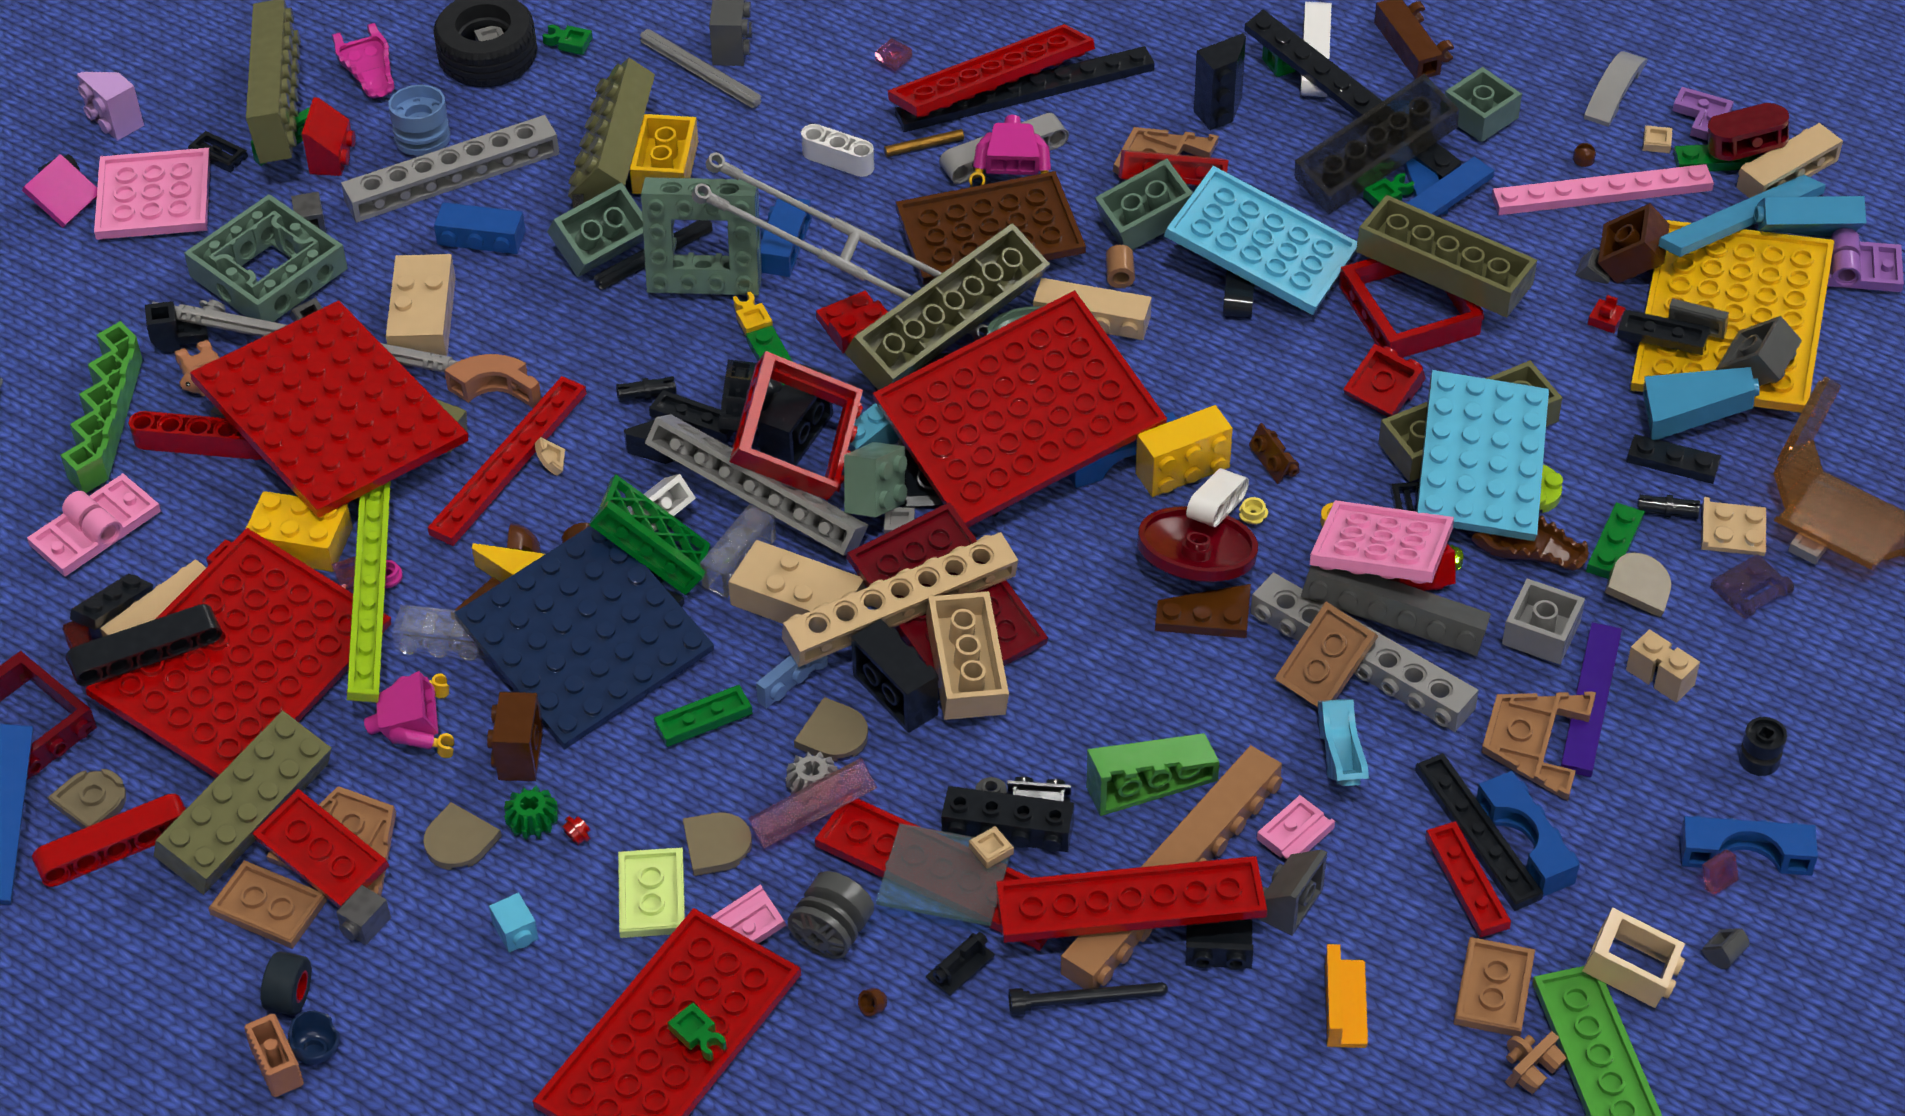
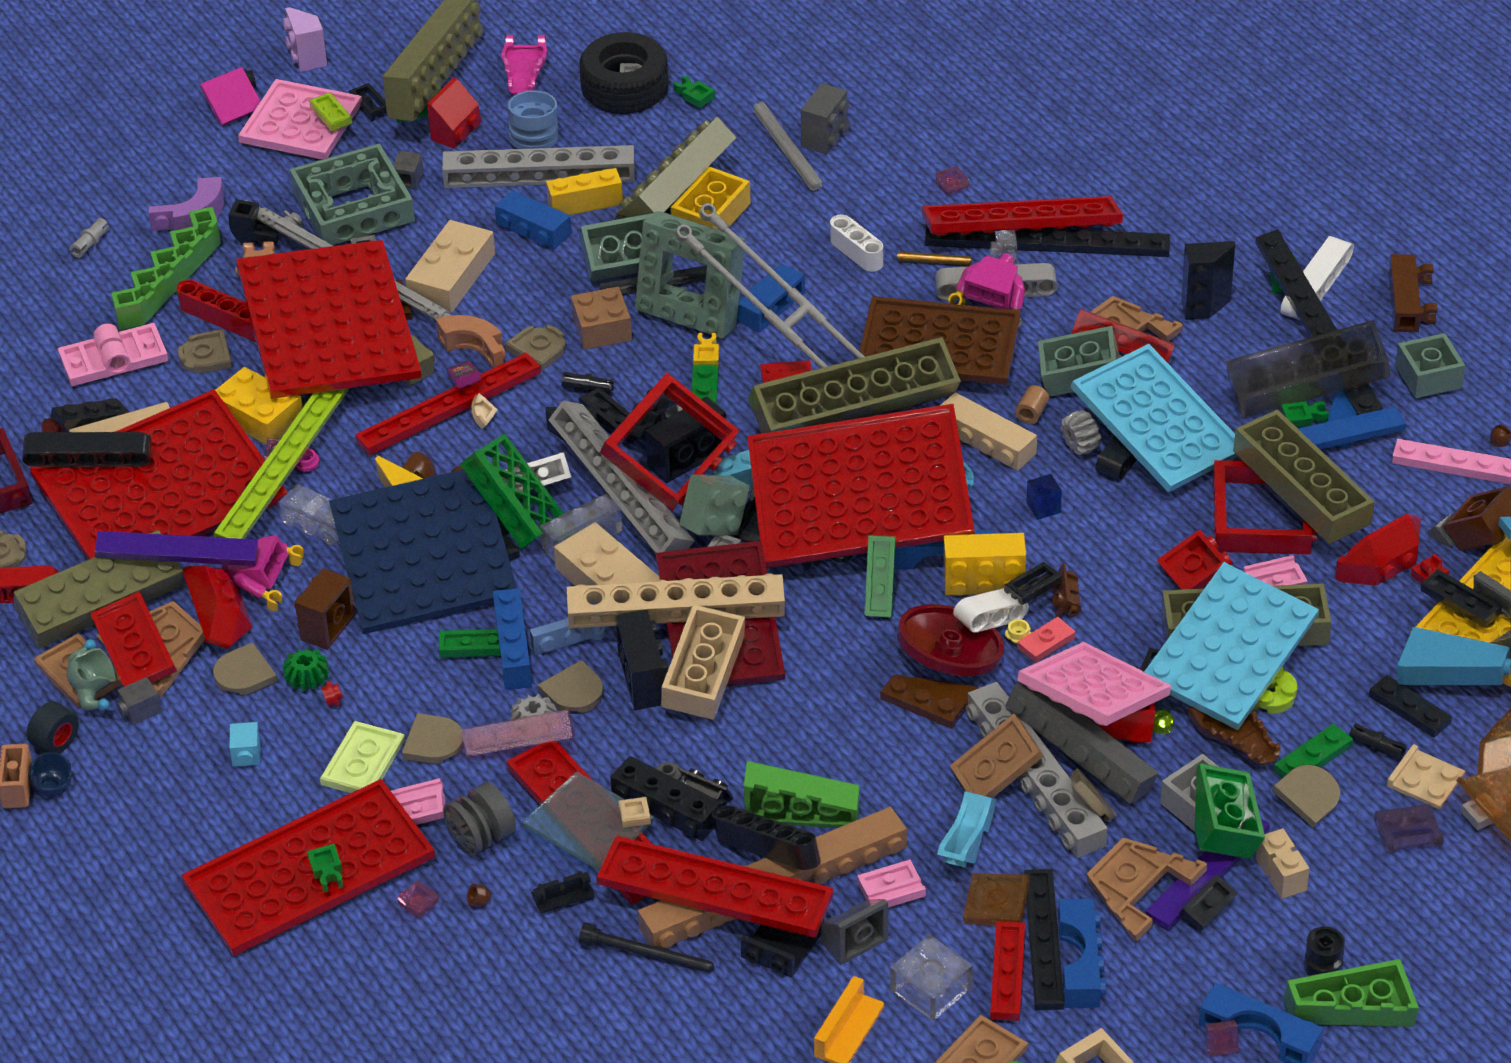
camera: 25 degrees right, 5 degrees down
(83, 342) = (171, 217): none -> medium lavender arch
(188, 175) = (330, 111): none -> lime plate
(198, 488) = (205, 352): none -> dark tan tile
(292, 905) = (88, 673): none -> sand green piece
(317, 725) = (176, 548): none -> dark purple tile
(389, 772) = (217, 605): none -> red wedge
(508, 422) = (463, 374): none -> magenta tile
(520, 180) = (585, 192): none -> yellow brick
(567, 359) = (541, 343): none -> dark tan tile
(619, 313) = (601, 318): none -> medium nougat brick
(754, 717) = (512, 639): none -> blue arch
(810, 1029) = (418, 899): none -> clear pink plate
(992, 109) = (1004, 243): none -> clear brick
(1089, 499) = (880, 575): none -> green plate
(1150, 825) = (766, 837): none -> black beam
(1190, 280) = (1080, 432): none -> light grey gear
(1193, 359) = (1044, 496): none -> clear blue brick
(1239, 469) = (1036, 584): none -> black tile
(1284, 510) = (1046, 639): none -> coral plate
(1399, 915) = (931, 977): none -> clear brick
(1408, 805) = (996, 898): none -> clear orange tile
(1439, 659) = (1092, 795): none -> dark tan tile
(1471, 362) = (1277, 572): none -> bright pink plate
(1558, 312) = (1381, 553): none -> red wedge
(1591, 632) = (1226, 812): none -> green slope
(1617, 733) = (1208, 903): none -> black plate
(1821, 780) = (1355, 996): none -> bright green wedge

